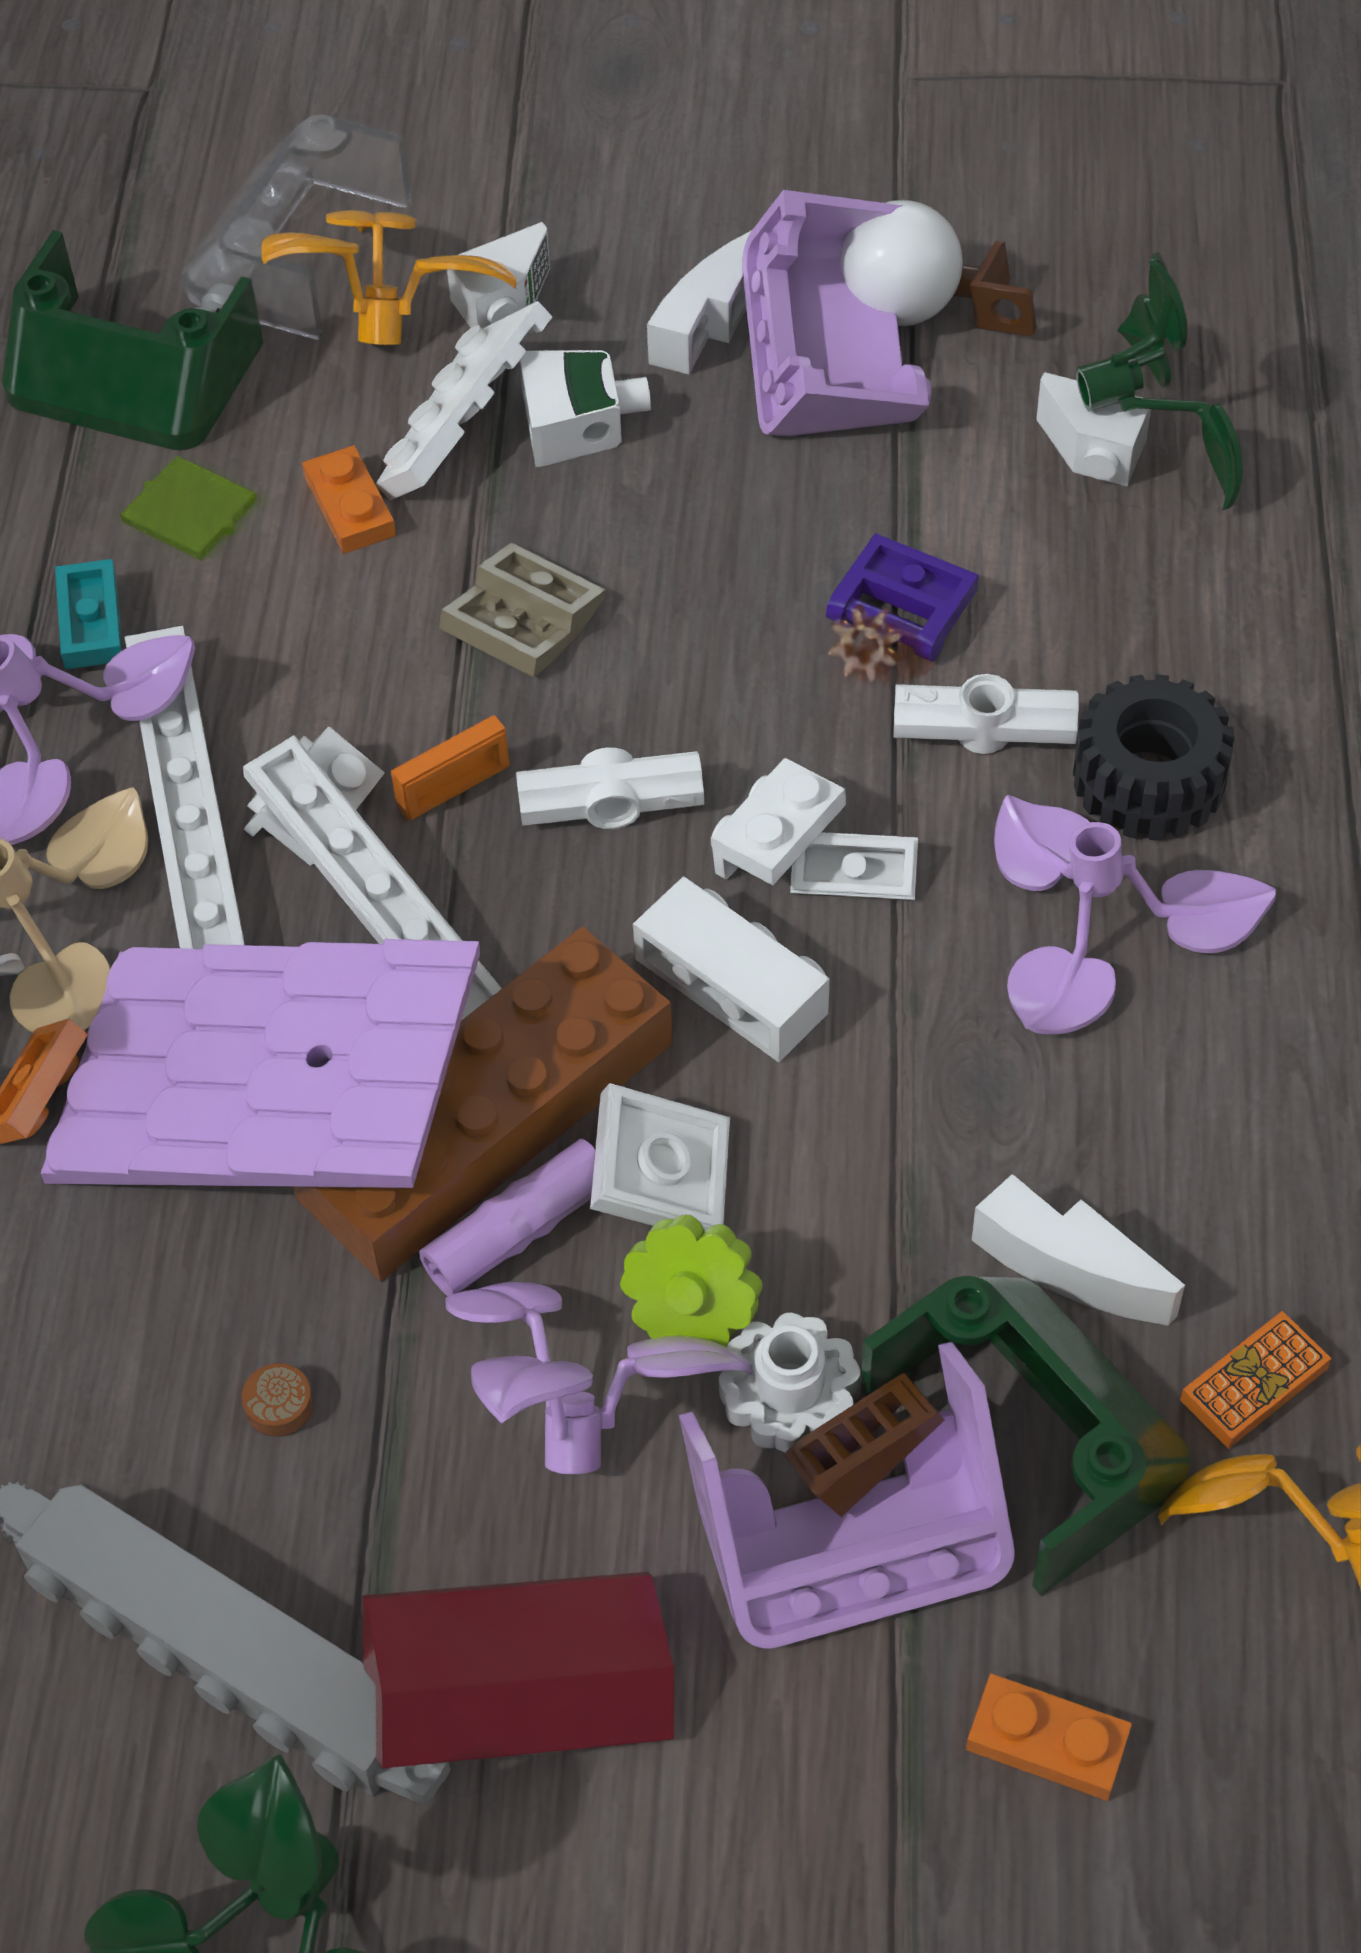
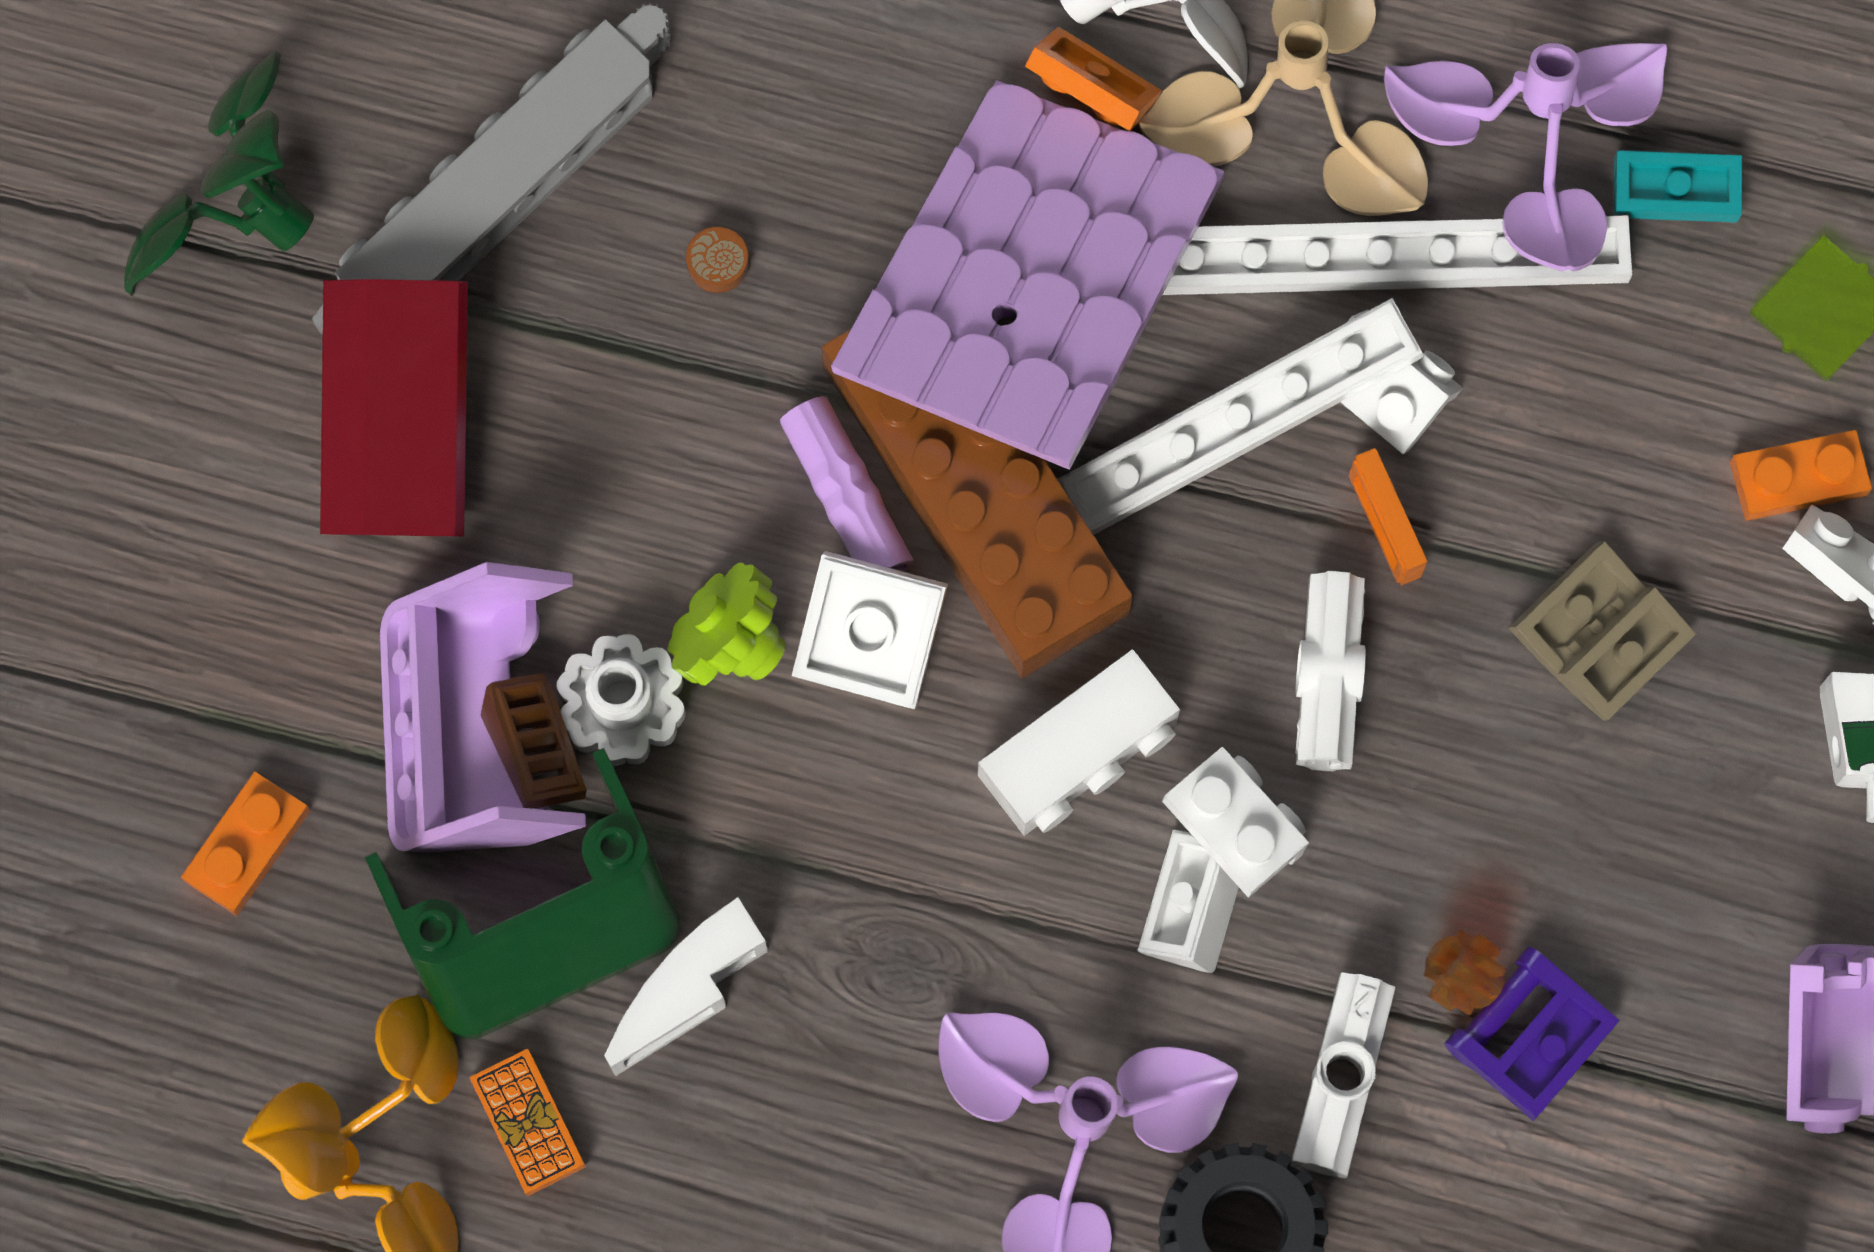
camera: 100 degrees right, 20 degrees up
(571, 1416) = (596, 432): lavender plant -> none

